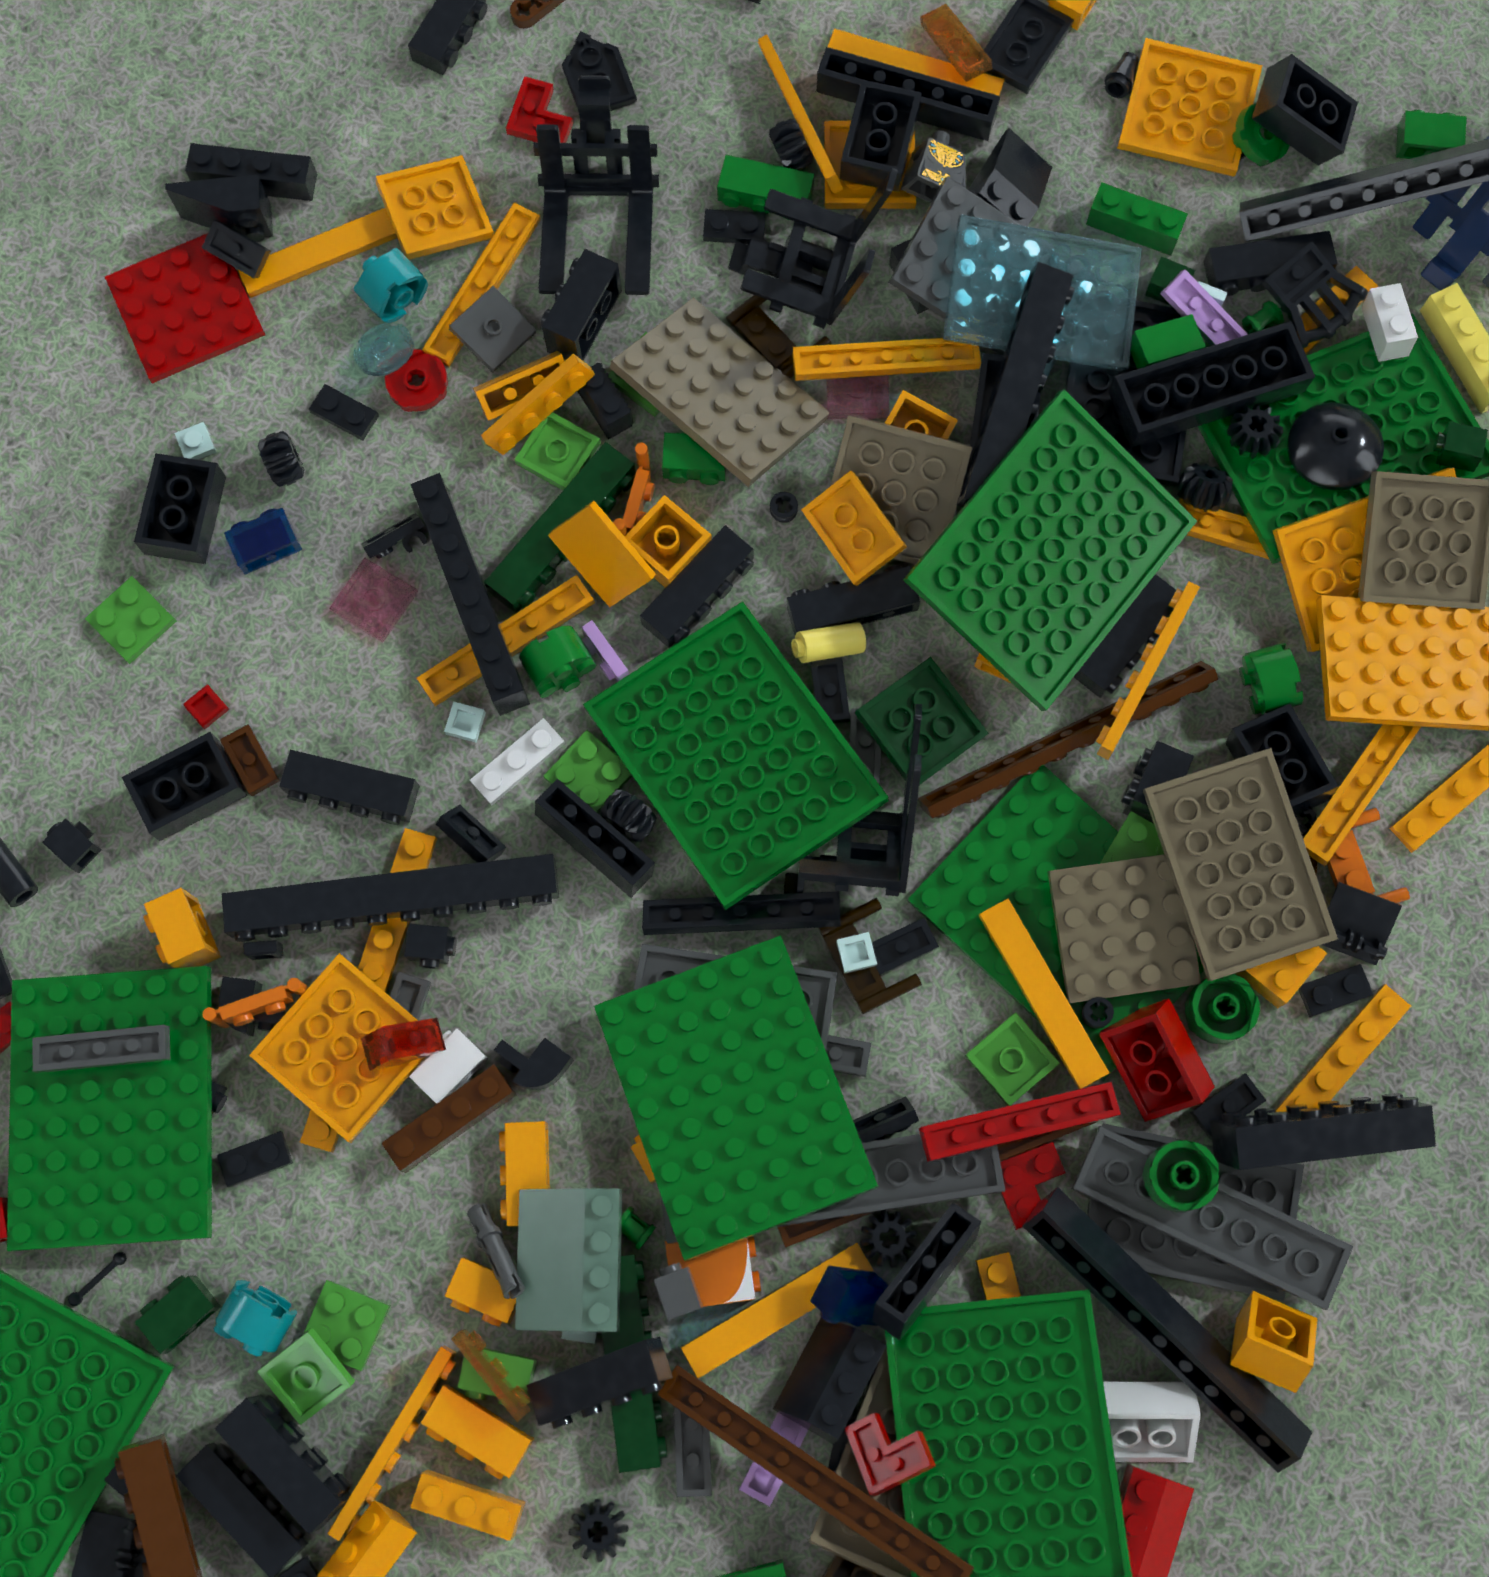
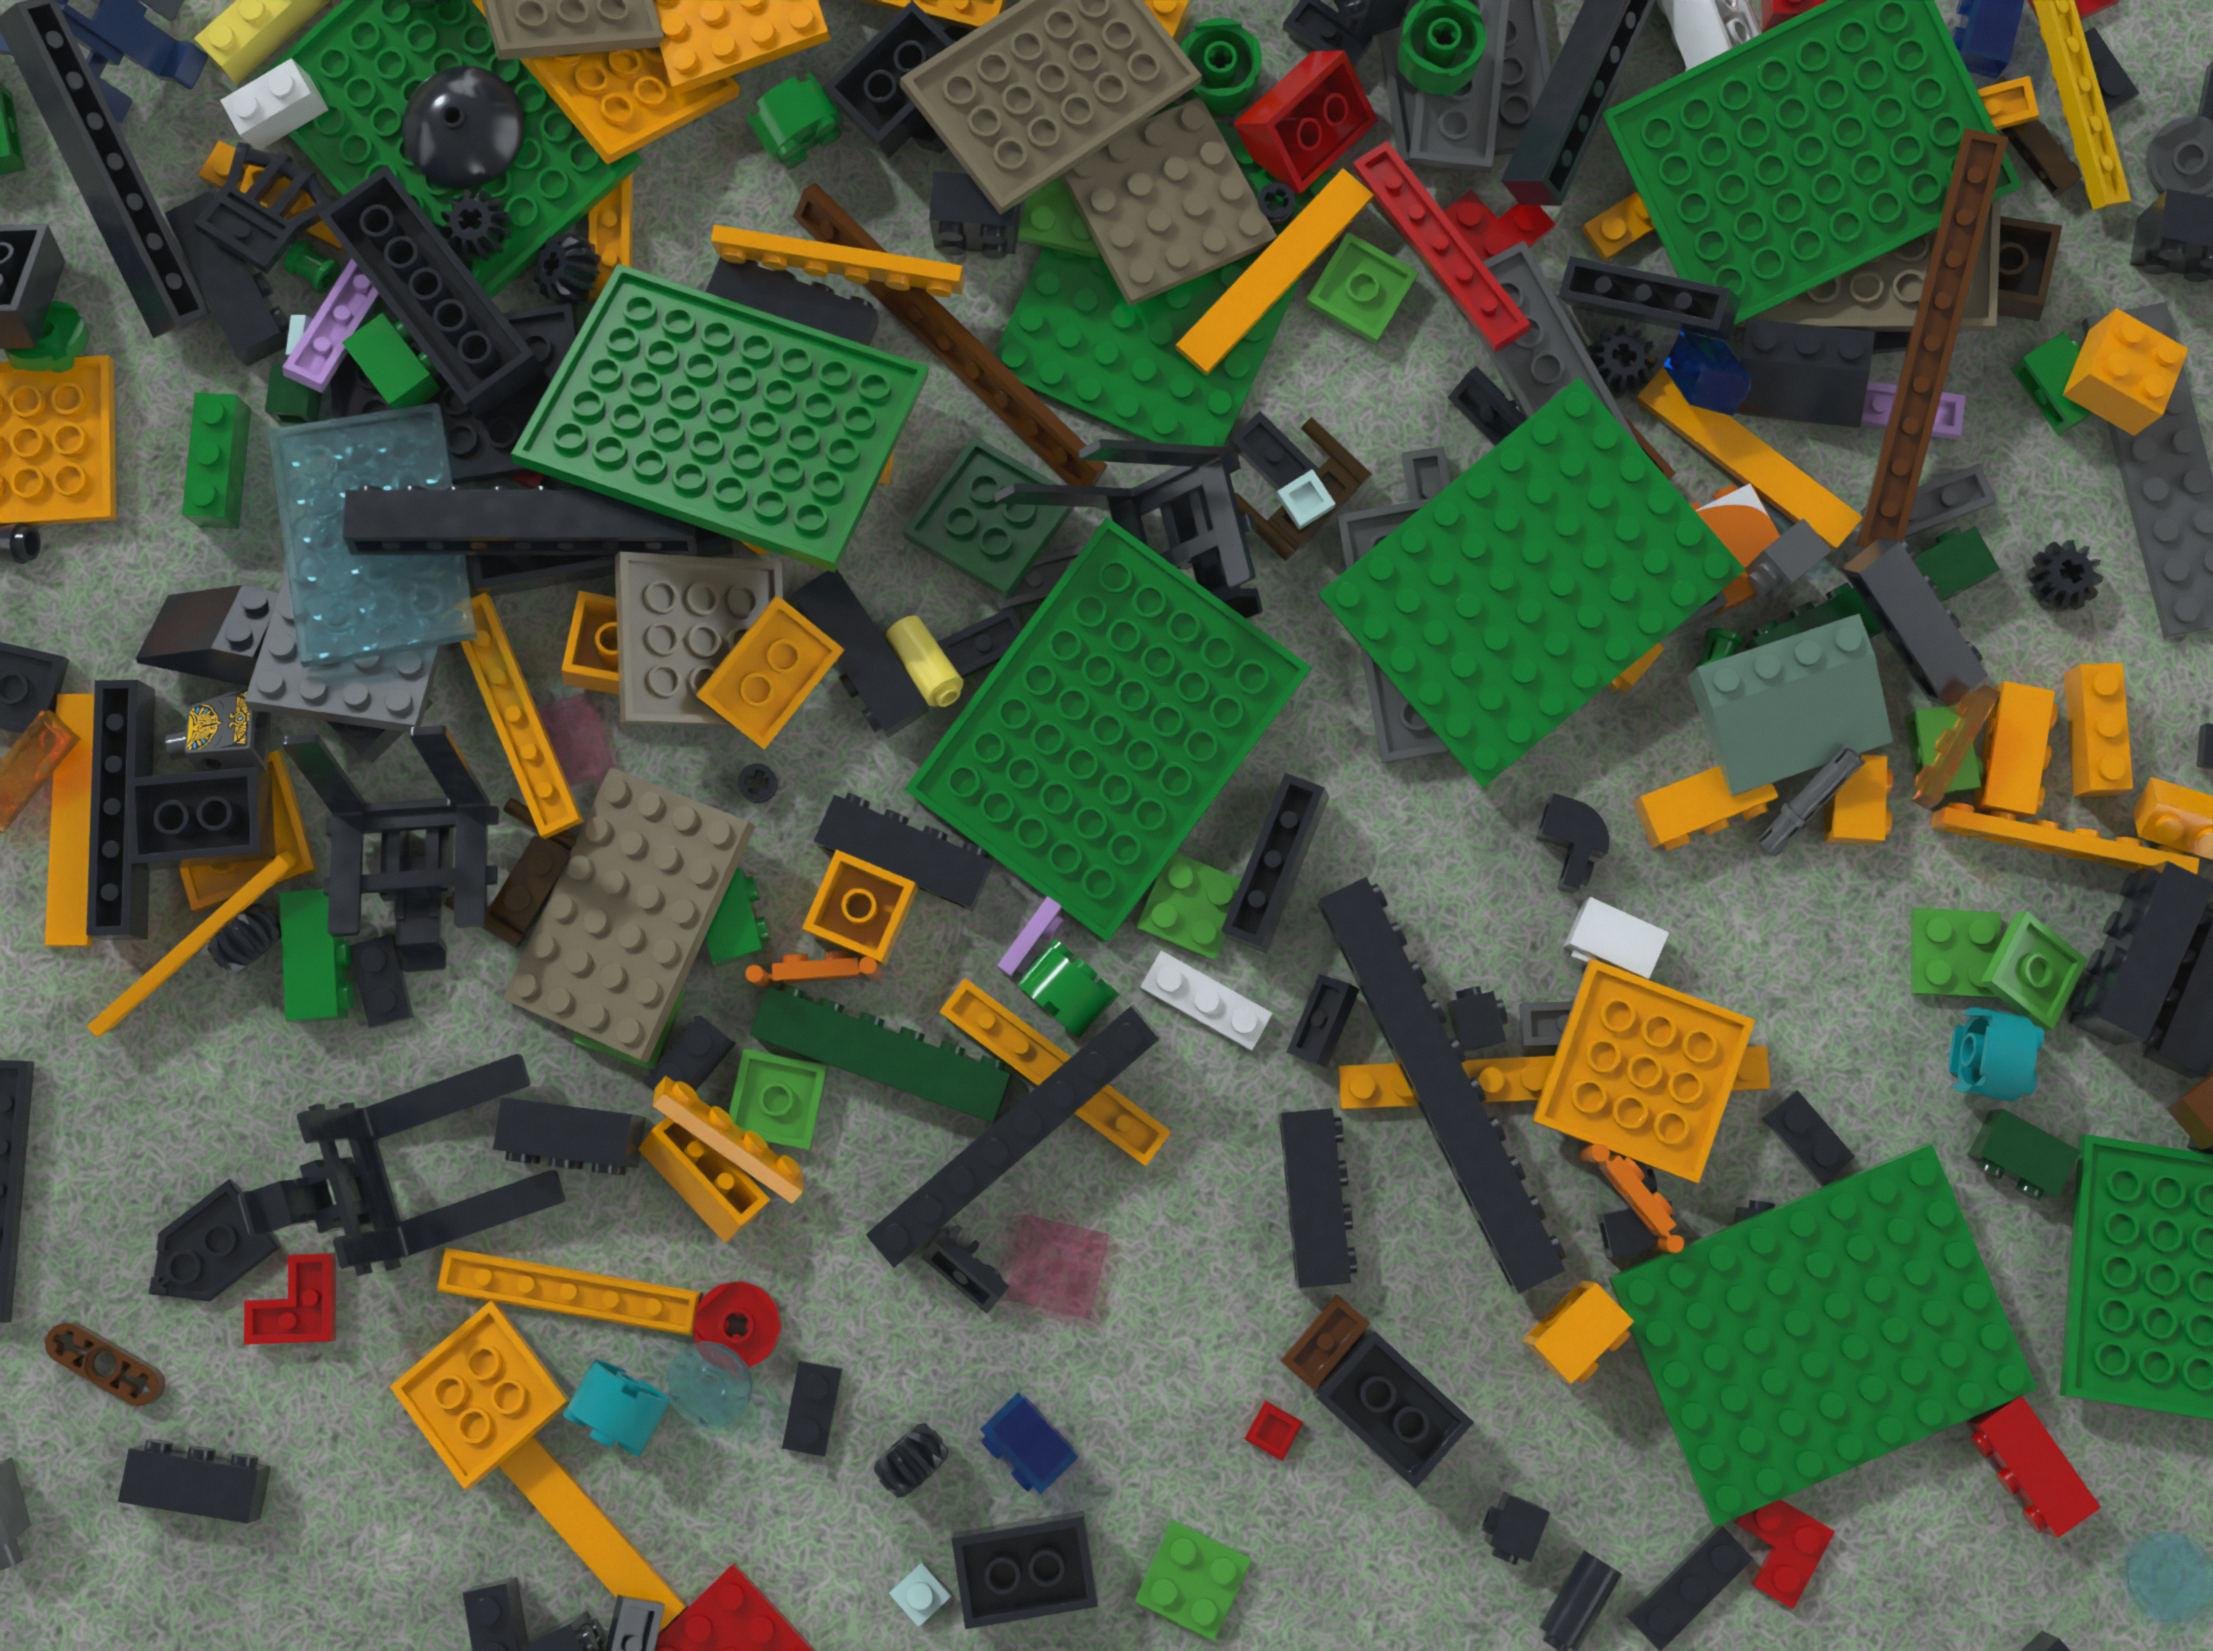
camera: 110 degrees left, 5 degrees up
(77, 1297) = (2048, 1289): black hinge -> none
(101, 1048) = (1765, 1365): dark grey plate -> none
(263, 950) = (1559, 1225): black tile -> none
(402, 1043) = (1620, 993): clear red slope -> none
(448, 1119) = (1690, 922): reddish brown brick -> none
(464, 722) = (1180, 1084): light aqua plate -> none
(492, 329) = (632, 1249): dark grey plate -> none
(601, 554) = (909, 979): light orange tile -> none
(628, 815) = (1232, 831): black gear -> none
(748, 914) = (1297, 631): black plate -> none
(885, 1463) = (1884, 271): plate -> none

